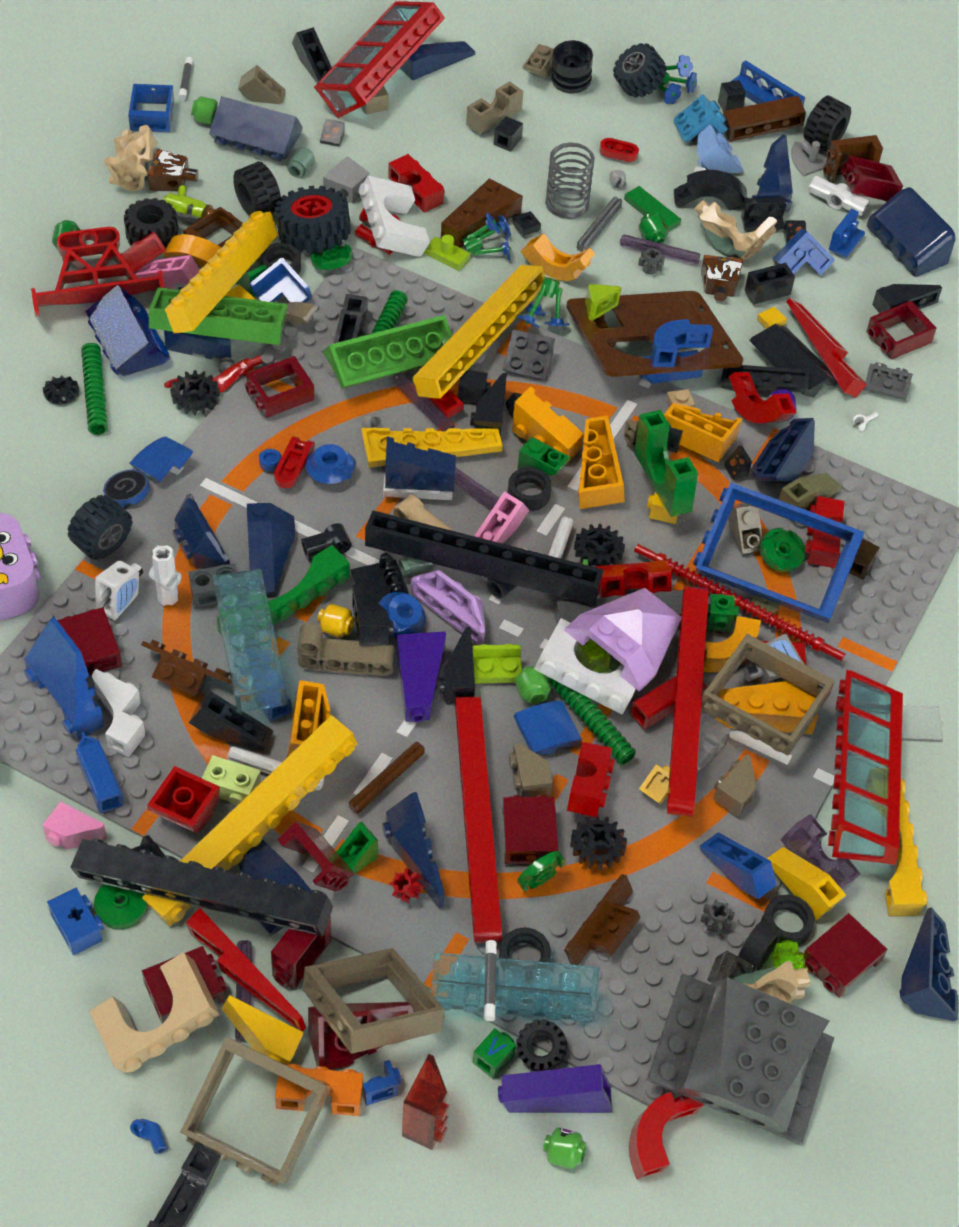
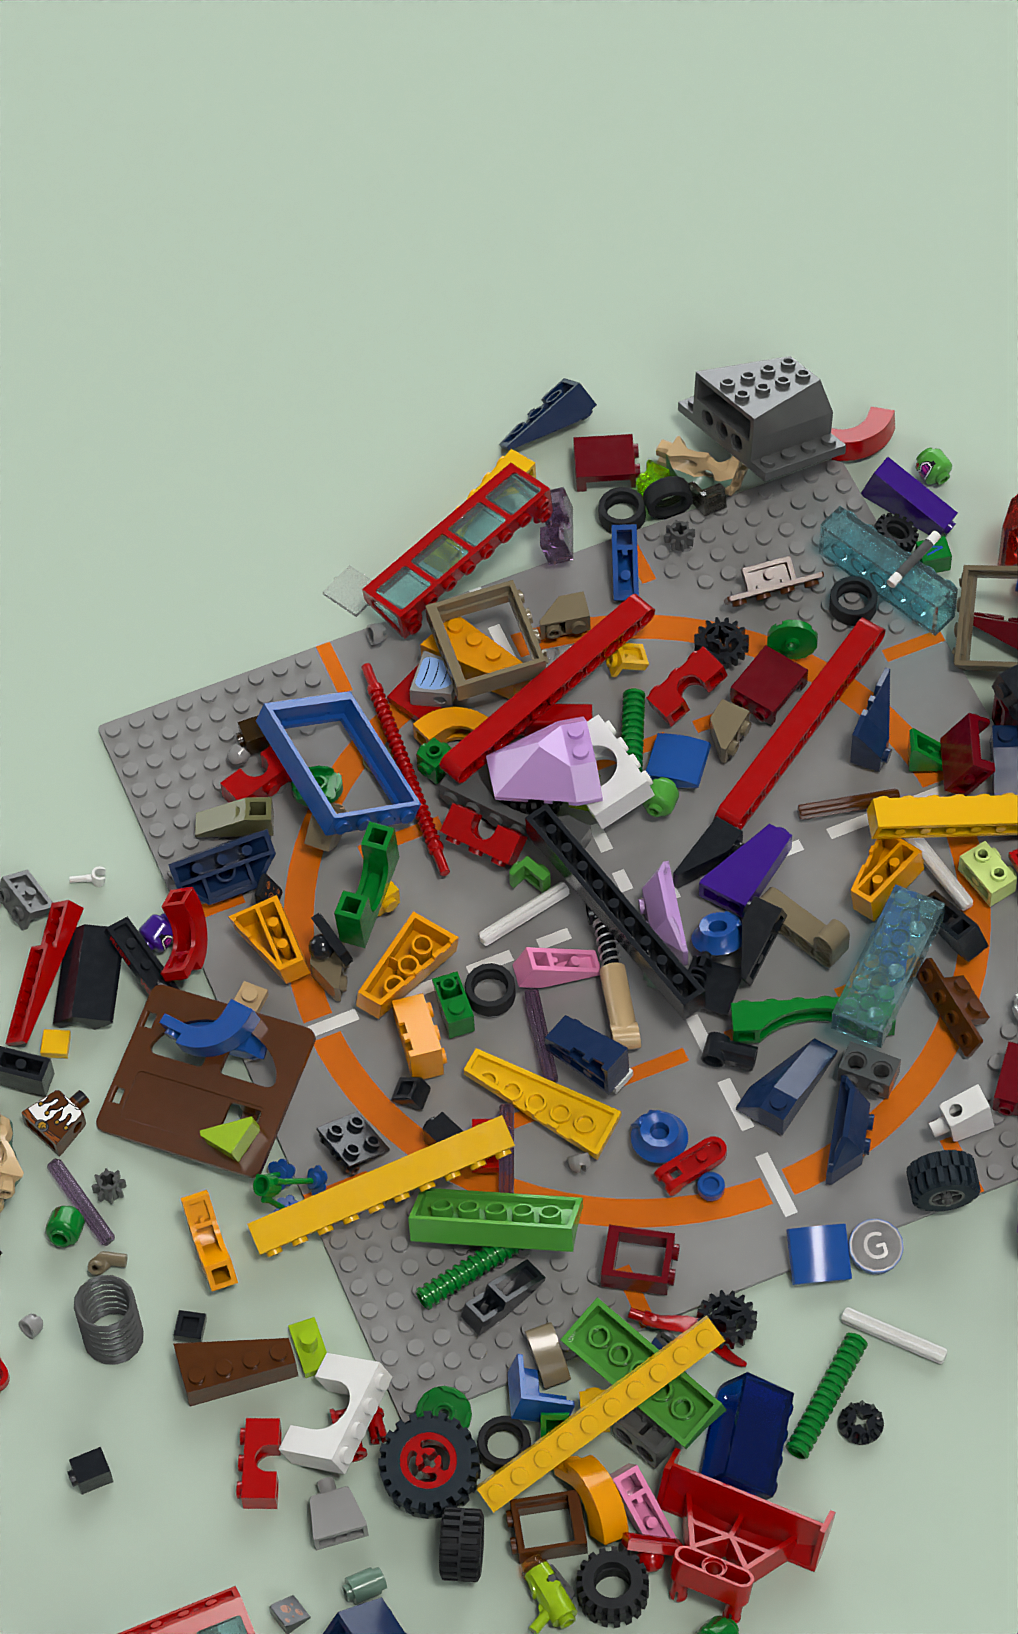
camera: 135 degrees left, 5 degrees up
(74, 447) = (894, 1335): none -> white axle
(165, 575) = (919, 1080): white piece -> none
(336, 621) = (785, 961): yellow head -> none
(406, 885) = (906, 700): red gear -> none
(473, 241) = (273, 1327): plant -> none
(484, 116) = (56, 1516): dark tan arch -> none
(490, 407) = (452, 1095): black slope -> none
(496, 663) = (669, 840): lime bracket -> none
(599, 224) = (127, 1272): dark grey axle -> none
(599, 546) = (480, 890): black gear -> none
(612, 229) = (105, 1260): none -> dark tan arm
(646, 204) = (32, 1263): green tile -> none
(807, 881) = (584, 518): yellow slope -> none

